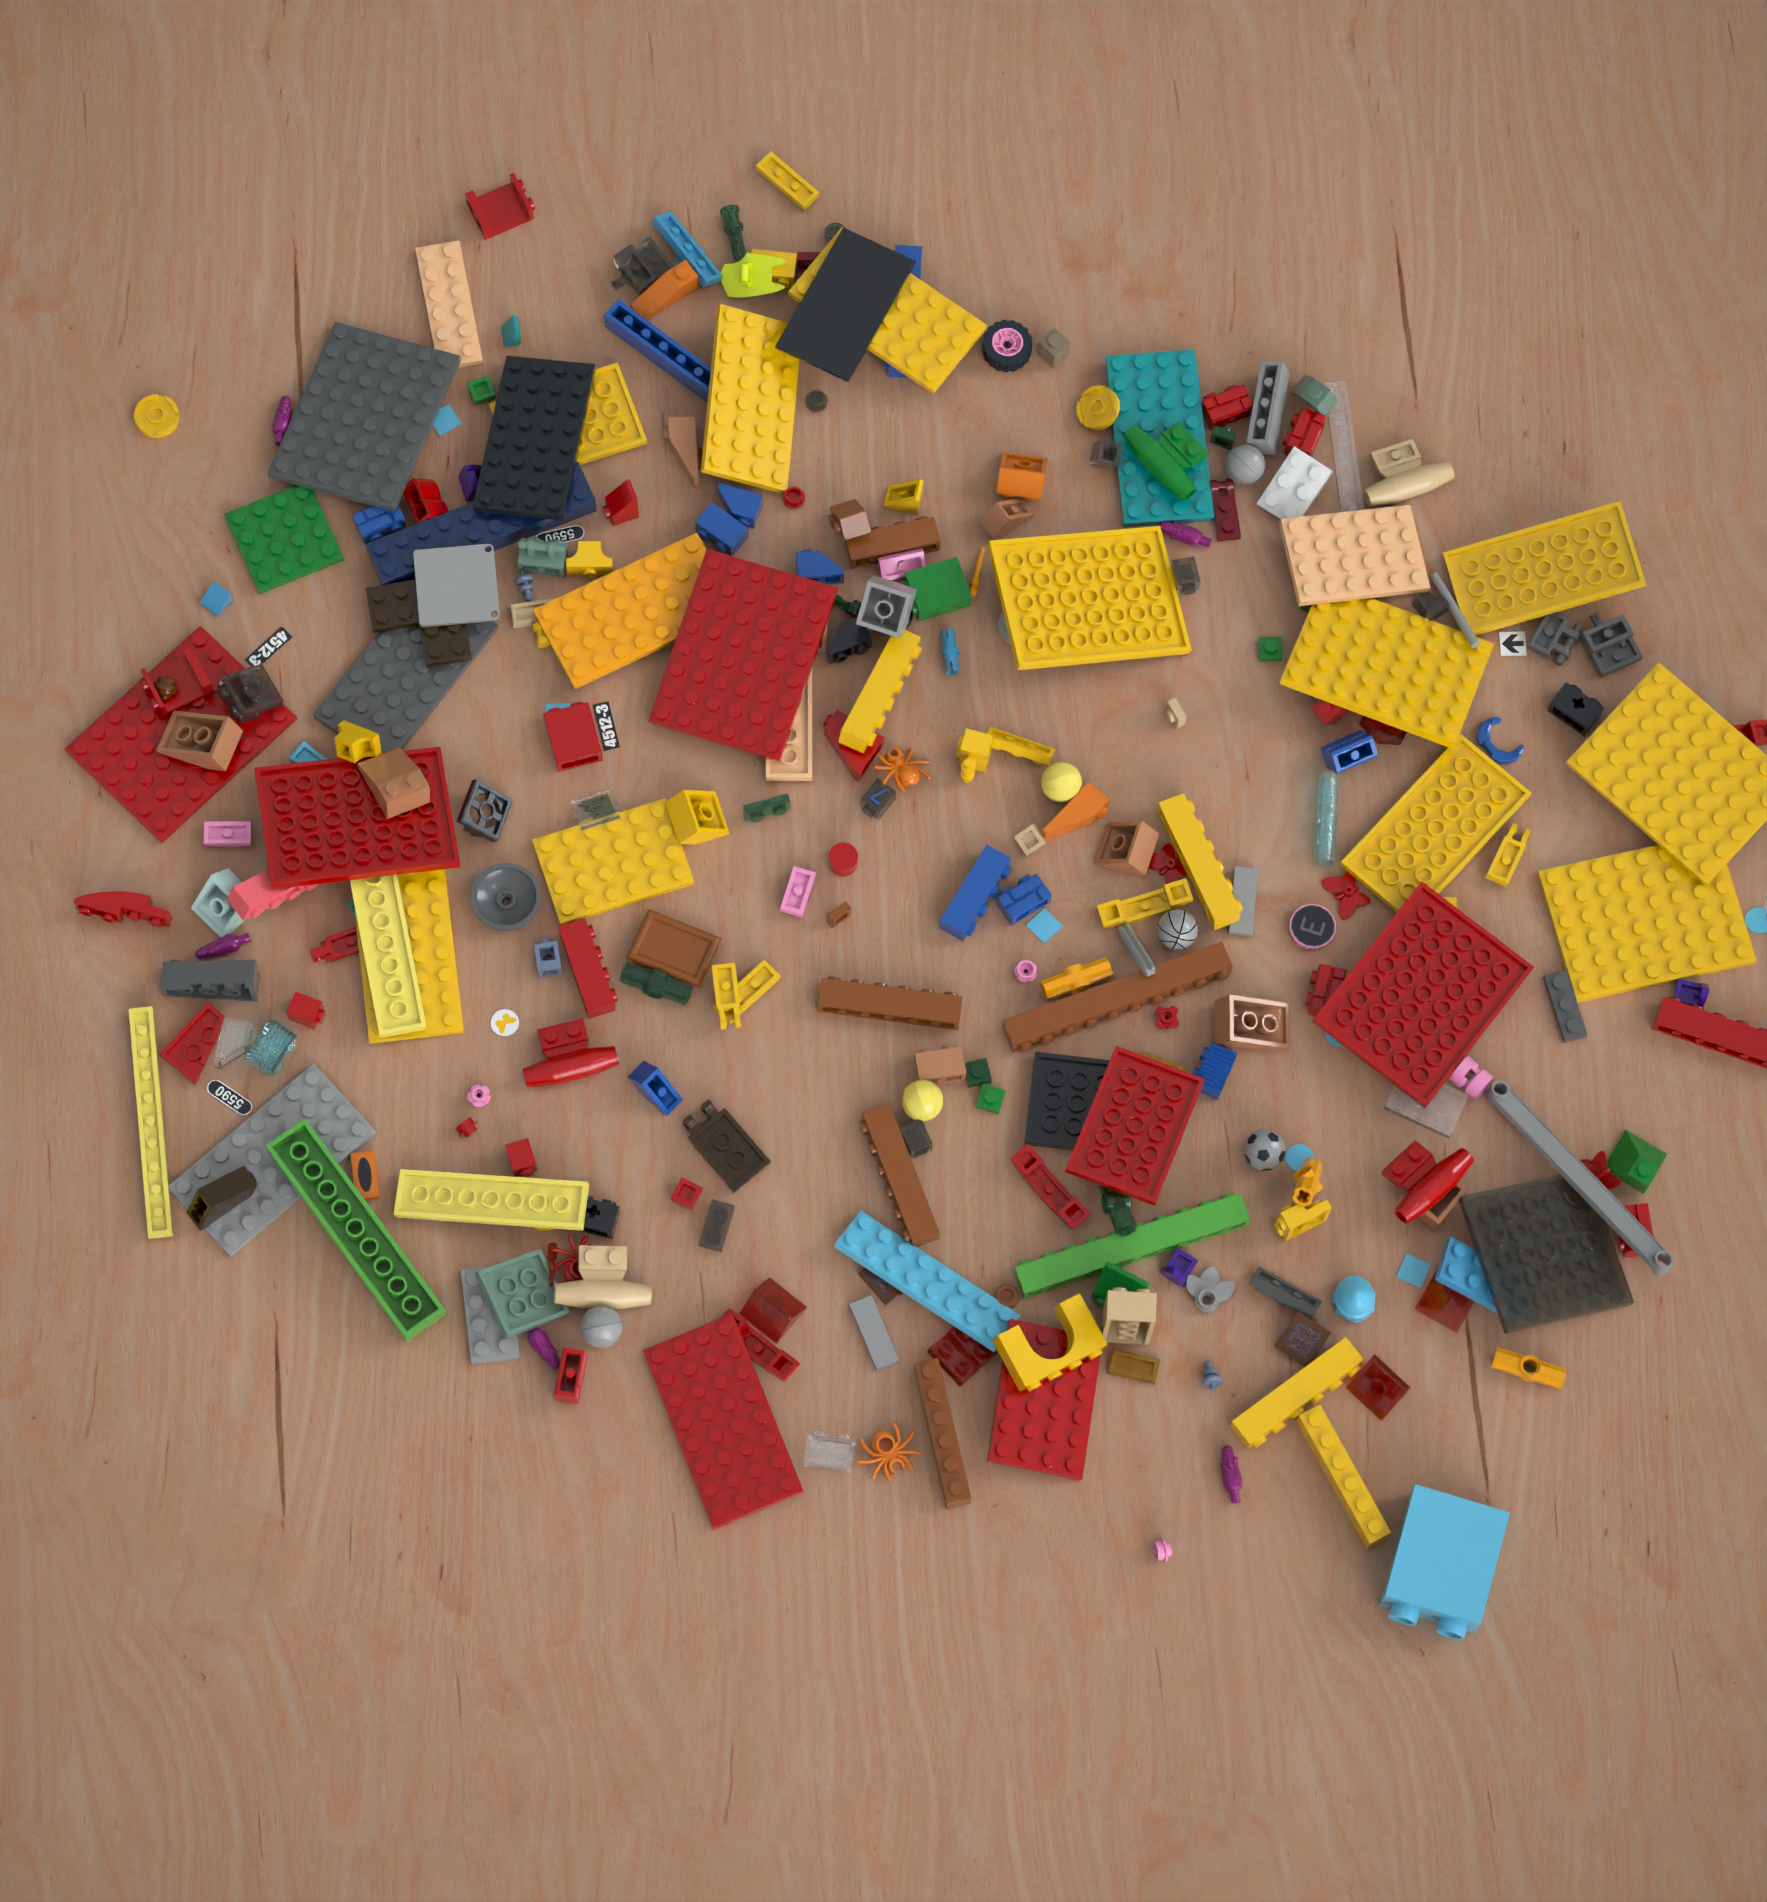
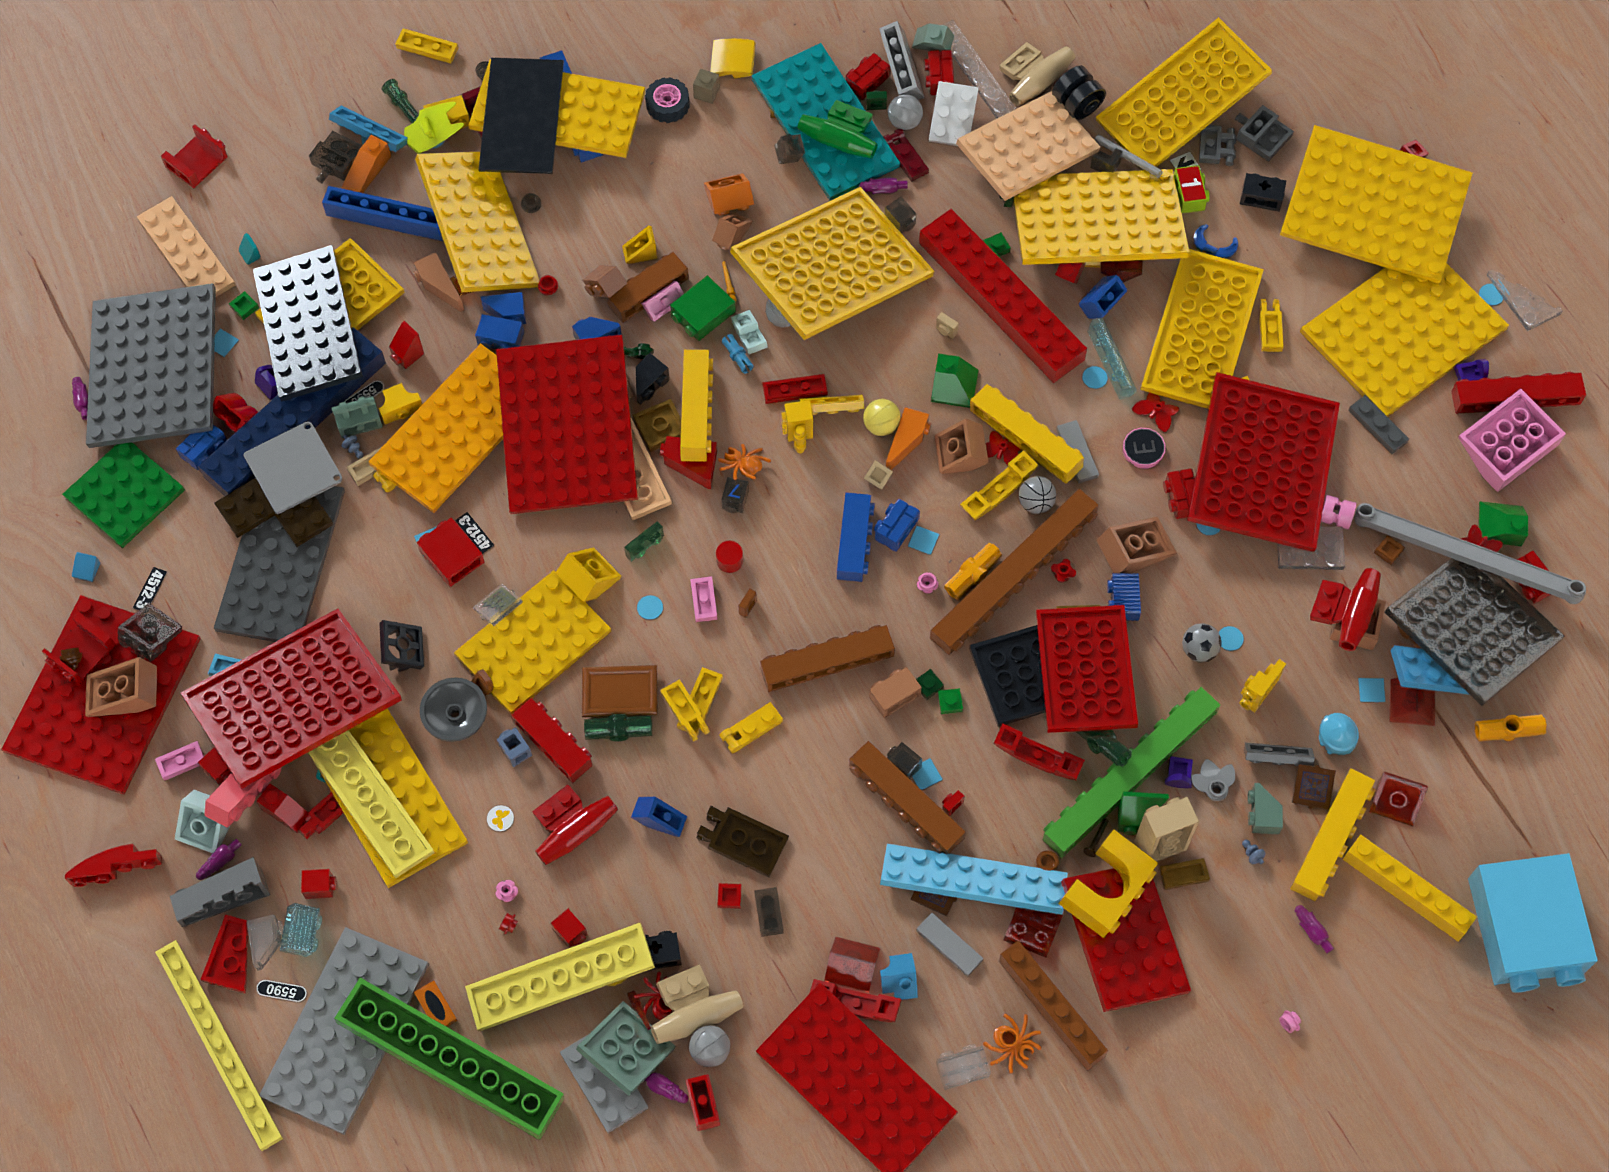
camera: 20 degrees left, 5 degrees down
(221, 1197) = (312, 1083): dark brown slope -> none
(256, 854) = (214, 766): none -> red brick
(303, 922) = (282, 808): none -> red slope
(356, 742) = (263, 633): yellow brick -> none
(395, 782) = (313, 652): nougat slope -> none
(546, 882) = (483, 681): none -> dark orange tile
(742, 876) = (650, 607): none -> medium azure sticker
(785, 1040) = (751, 727): none -> yellow plate
(810, 1342) = (900, 977): none -> dark azure brick
(837, 691) = (658, 423): none -> pearl gold tile
(886, 606) = (670, 335): light grey piece -> none
(922, 1100) = (895, 726): light yellow piece -> none
(932, 1161) = (927, 775): none -> medium azure sticker
(942, 1199) = (952, 802): none -> red plate
(973, 633) = (748, 332): none -> light aqua slope
(991, 713) = (794, 388): none -> red tile
(1052, 1304) = (1090, 851): none -> dark brown pin
(1097, 326) = (733, 57): none -> yellow slope
(1098, 407) = (765, 117): yellow tile -> none
(1136, 949) = (1012, 525): light grey axle -> none
(1154, 775) = (954, 381): none -> green slope
(1242, 1343) = (1266, 811): none -> sand green slope
(1247, 705) = (1002, 295): none -> red brick
(1301, 831) = (1094, 377): none -> medium azure sticker
(1307, 1181) = (1253, 652): light orange piece -> none
(1436, 519) = (1079, 92): none -> black wheel
(1501, 673) = (1191, 189): none -> brick
(1506, 1139) = (1389, 550): none -> dark orange tile
(1687, 1081) = (1510, 439): none -> bright pink slope

